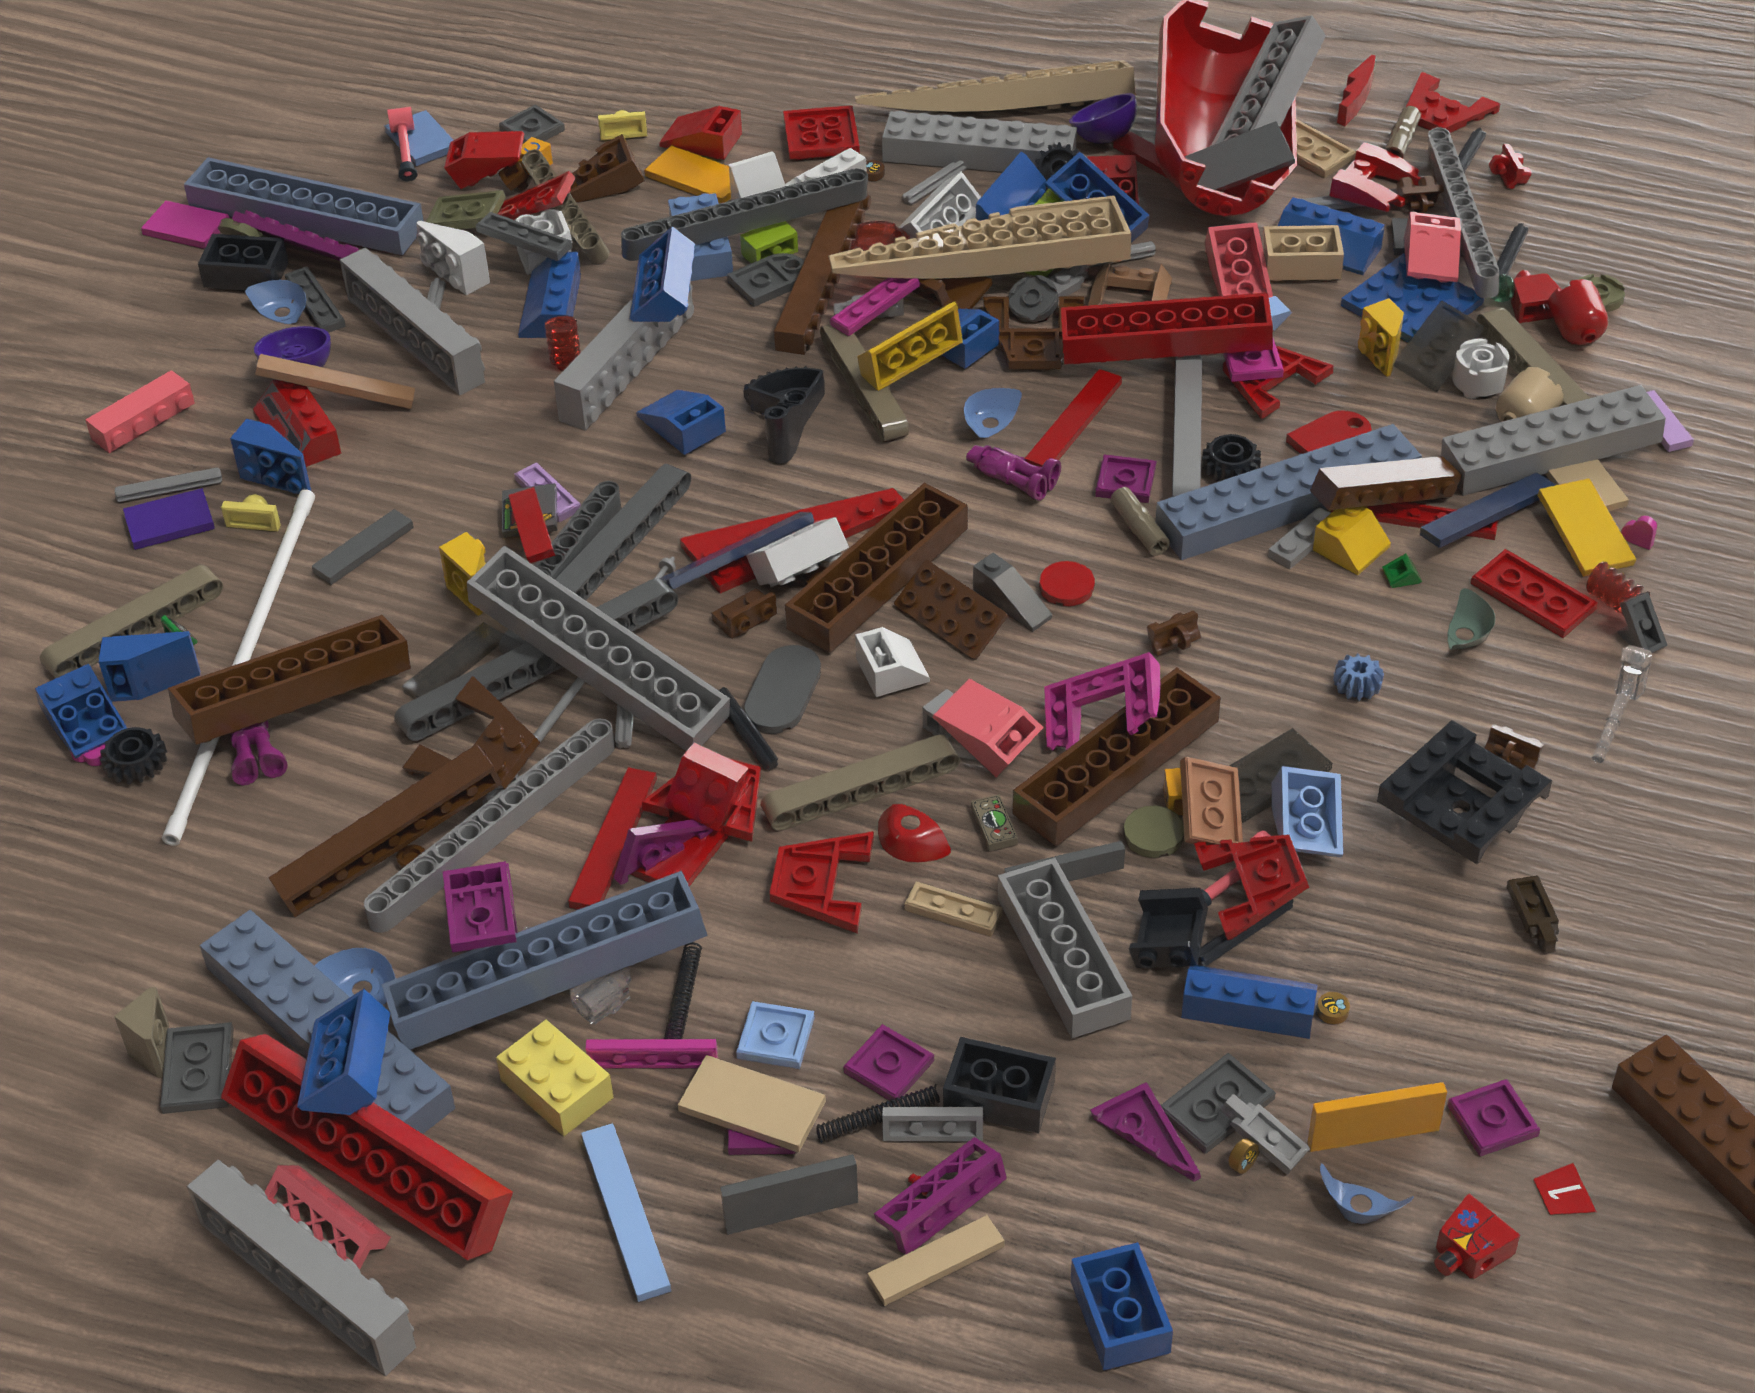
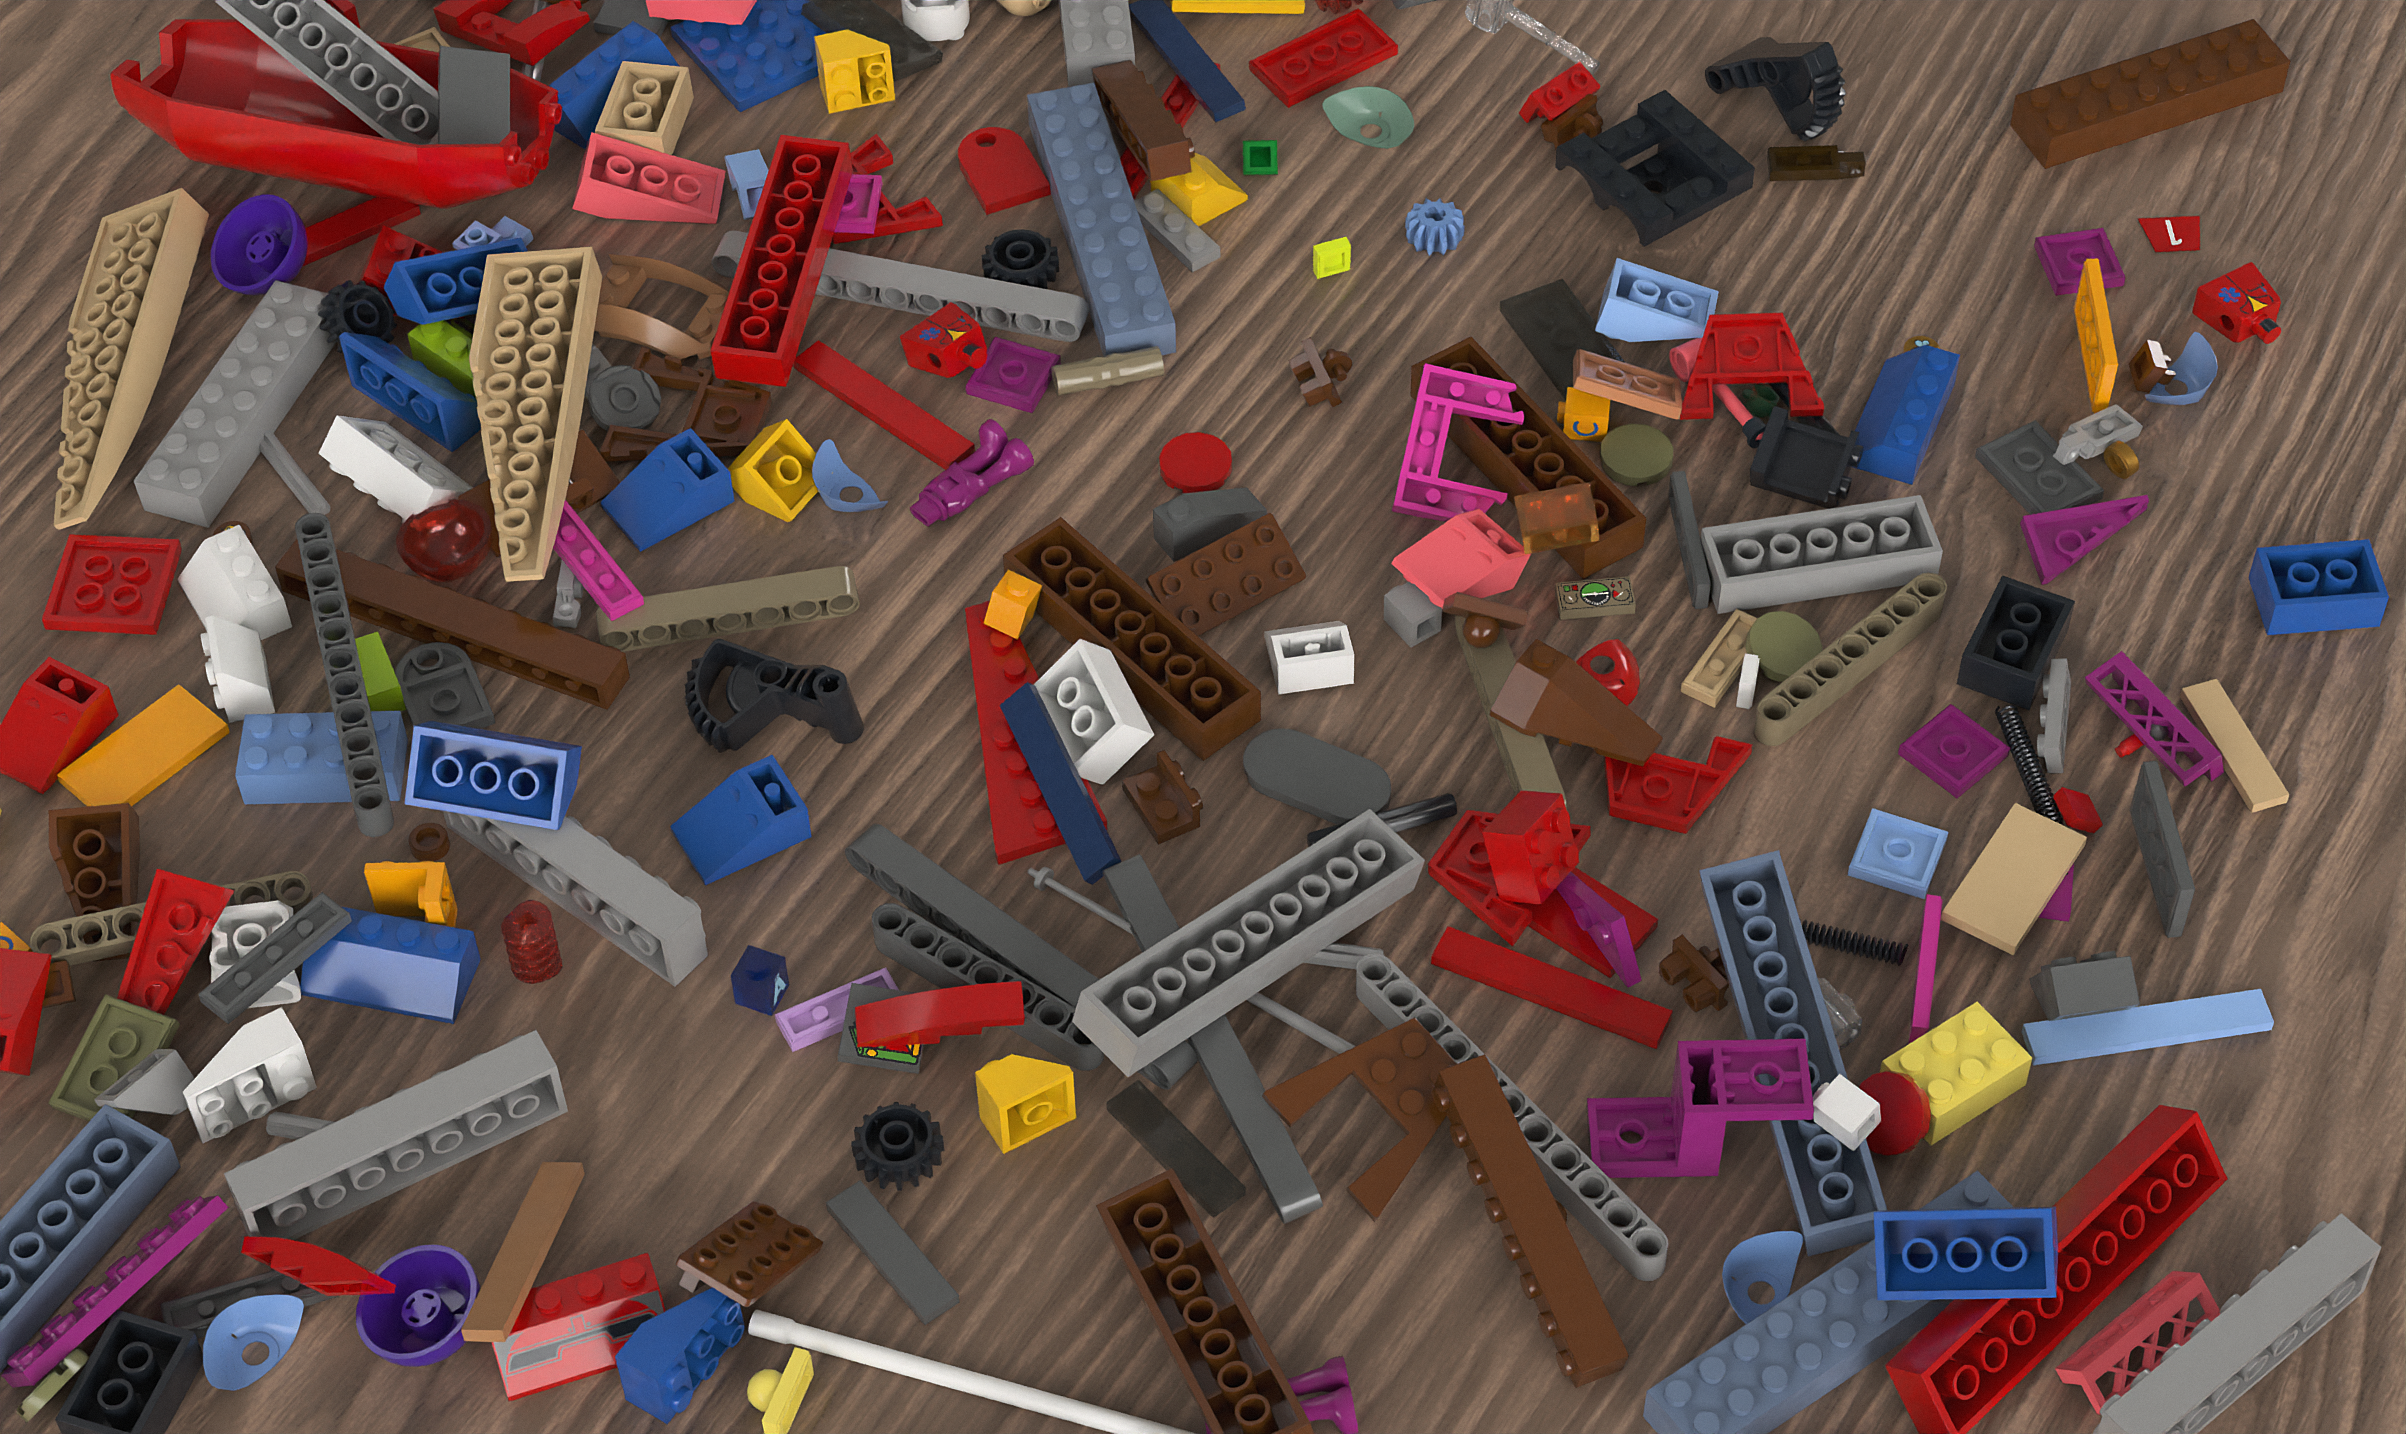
camera: 80 degrees left, 5 degrees up
(318, 304) = (316, 1267): none -> red slope
(334, 468) = (747, 1254): none -> reddish brown bracket
(435, 527) = (897, 1145): none -> black gear
(440, 216) = (151, 1085): none -> light grey slope
(466, 976) = (1845, 1111): none -> white brick
(507, 1036) = (1903, 1112): none -> red tile
(556, 447) = (760, 980): none -> clear blue brick
(587, 295) = (412, 890): none -> light orange bracket
(642, 1152) = (2086, 987): none -> dark grey slope
(835, 1143) = (2077, 810): none -> red tile
(853, 803) = (1562, 700): none -> reddish brown wedge
(885, 496) = (1012, 604): none -> light orange brick
(911, 347) = (728, 519): yellow slope -> none
(924, 736) = (1483, 618): none -> reddish brown tile
(924, 918) = (1748, 681): none -> white tile
(965, 983) = (1849, 659): none -> dark tan beam
(966, 938) = (1782, 643): none -> olive tile
(988, 371) = (776, 471): none -> yellow slope
(1029, 760) = (1556, 518): none -> clear orange brick
(1136, 433) = (945, 343): none -> red torso
(1160, 222) = (479, 234): none -> light blue slope
(1235, 893) = (1760, 400): none -> clear green plate
(1300, 622) = (1331, 257): none -> neon yellow tile
(1367, 1170) = (2150, 367): none -> reddish brown tile
(1541, 729) = (1559, 94): none -> red bracket
(1606, 864) = (1789, 75): none -> black arm

